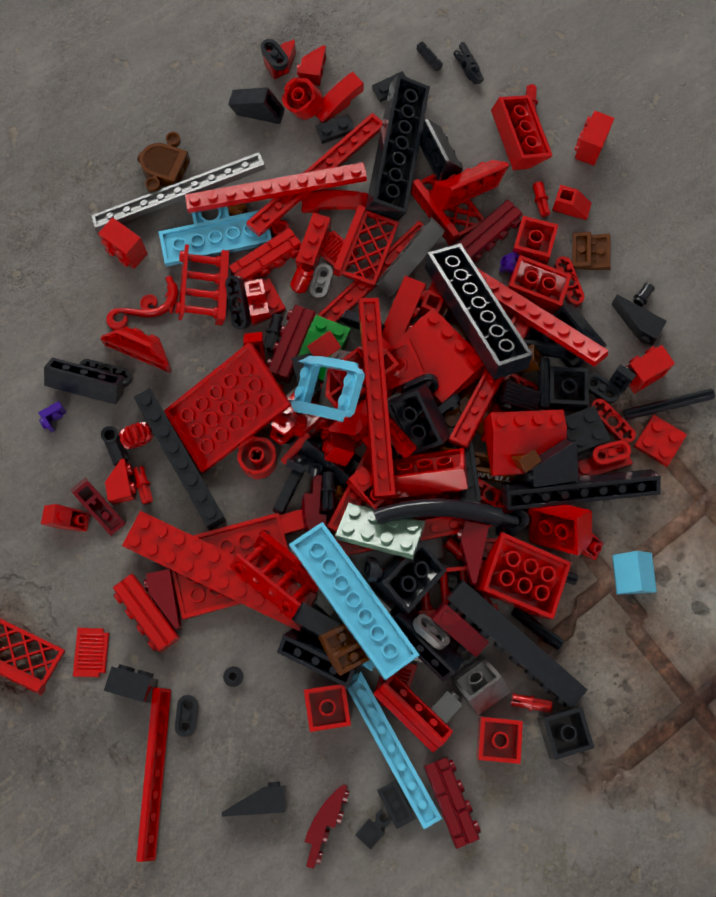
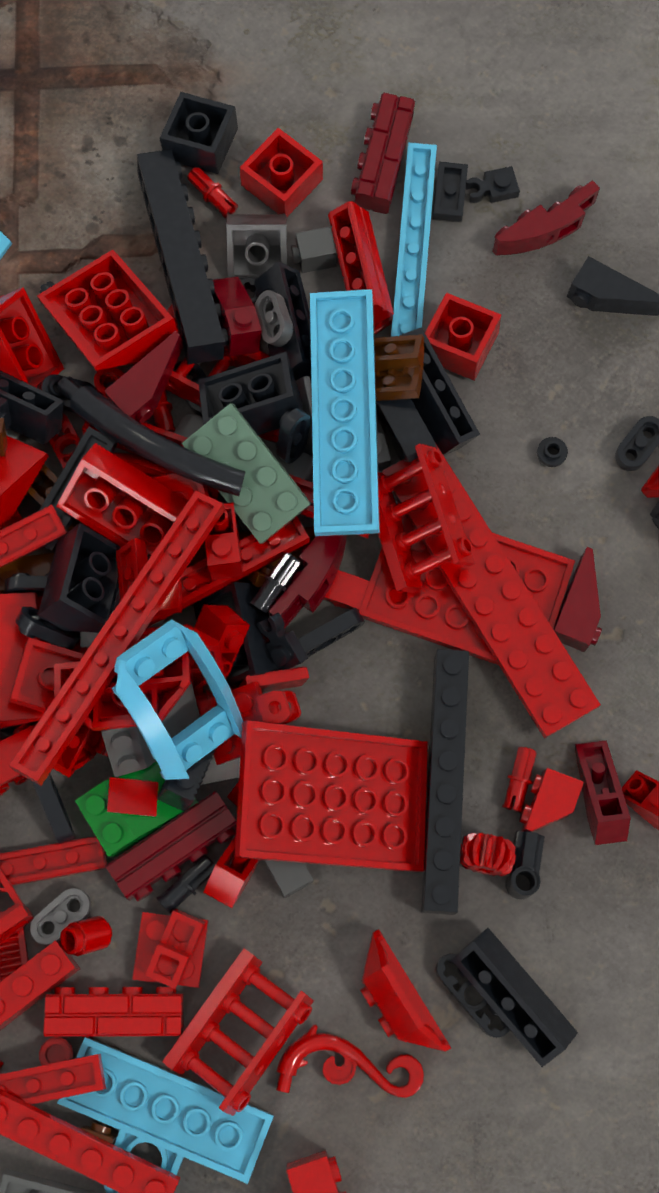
camera: 150 degrees left, 0 degrees up
(51, 413) = (587, 979): dark purple bracket -> none
(146, 613) = (619, 600): red brick -> none
(240, 287) = (193, 972): black beam -> none
(262, 448) = (337, 686): red brick -> none
(537, 628) = (134, 255): black axle -> none

